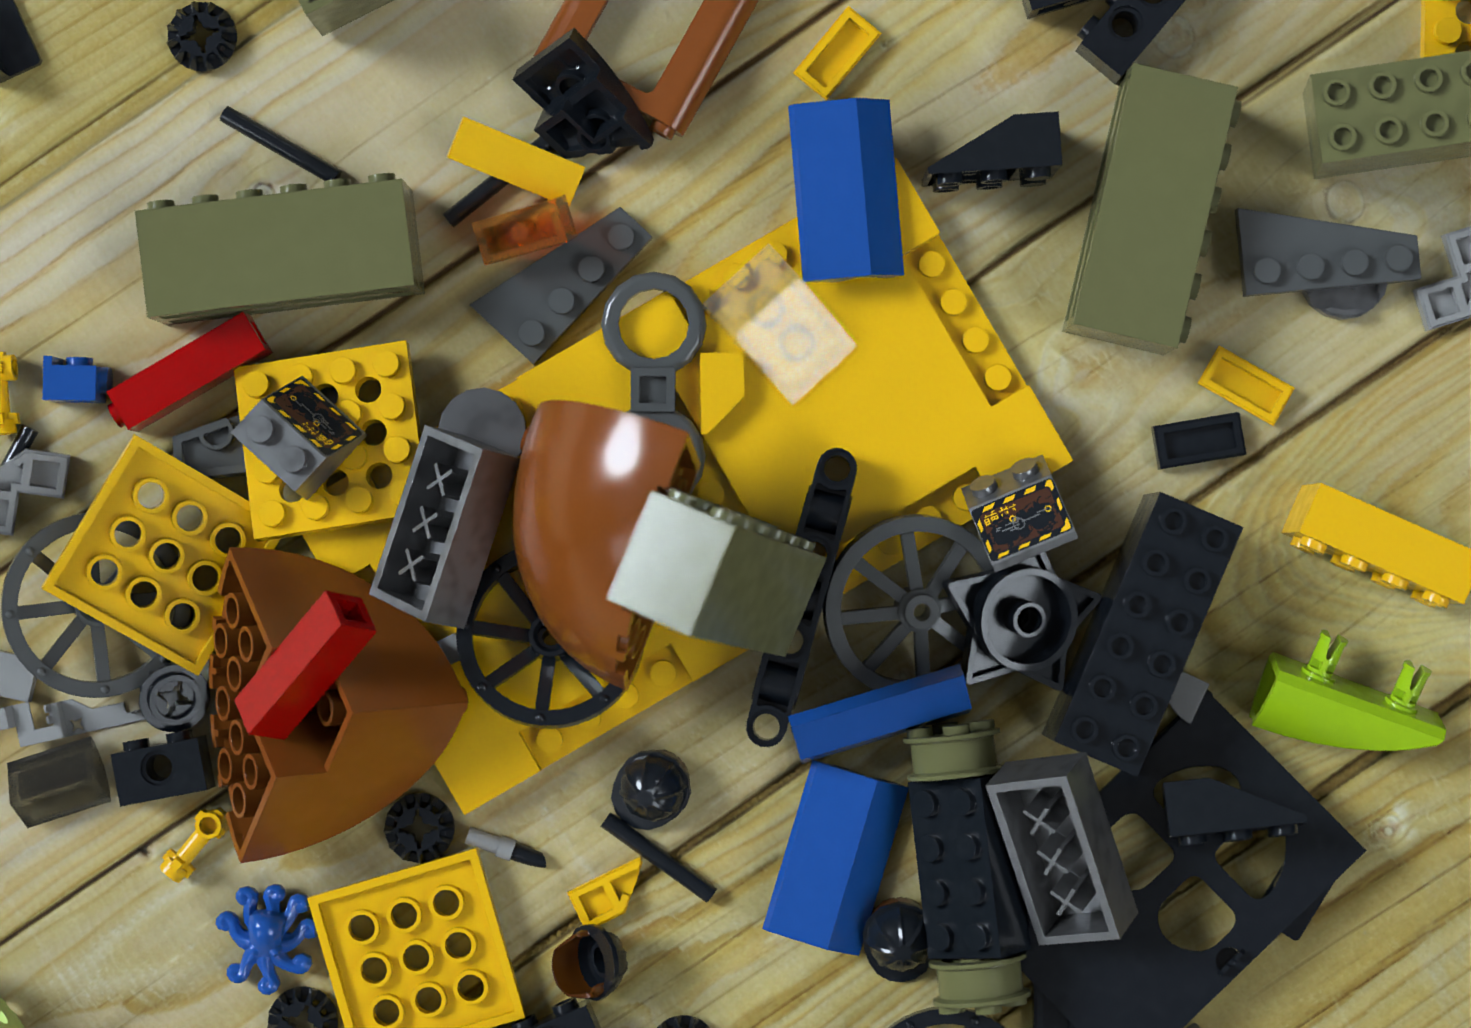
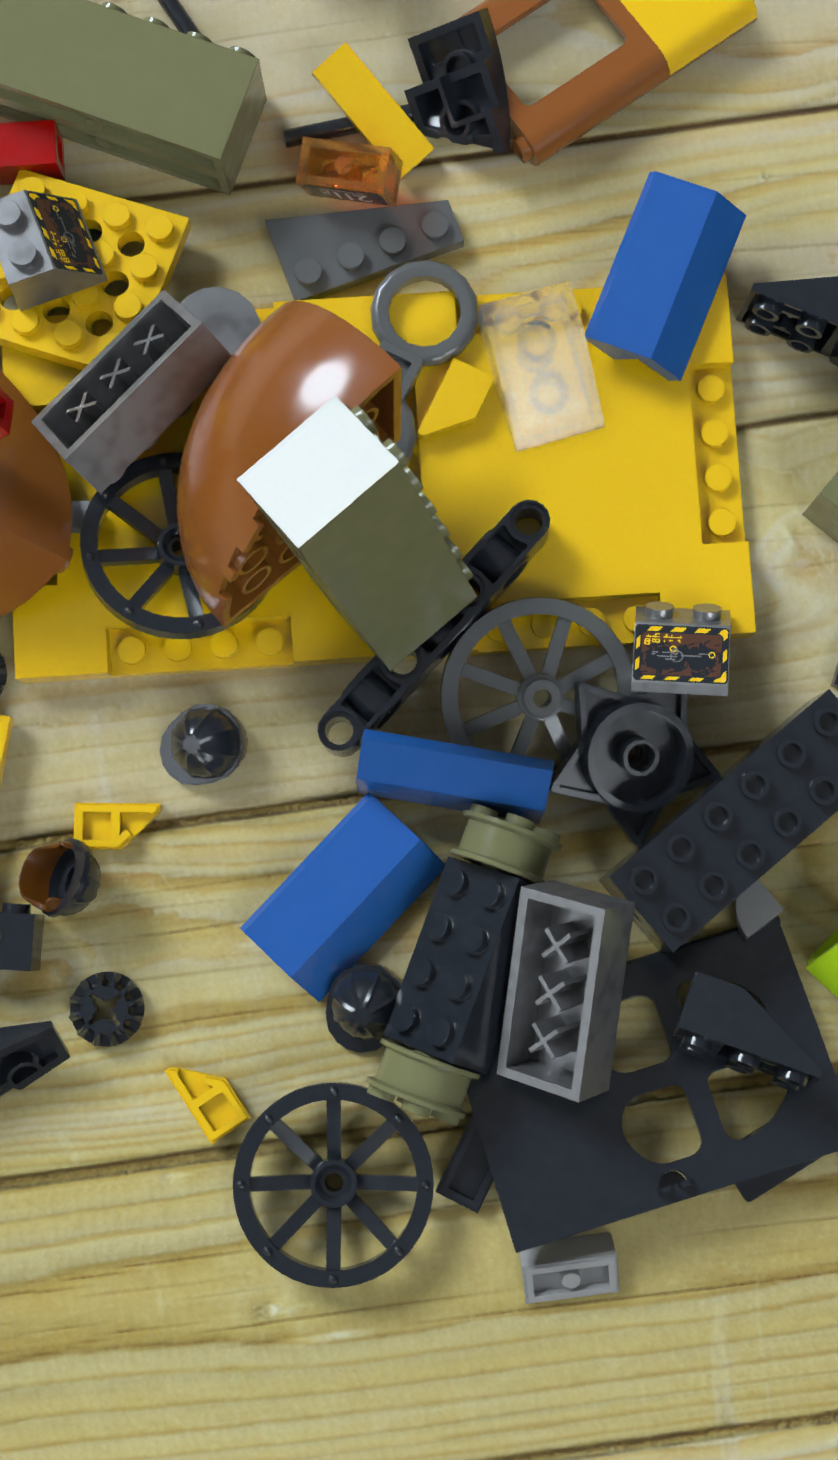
camera: 30 degrees right, 5 degrees down
(505, 848) = (39, 732): light grey piece -> none
(658, 857) = (177, 813): black bar -> none
(837, 53) = (719, 158): yellow tile -> none

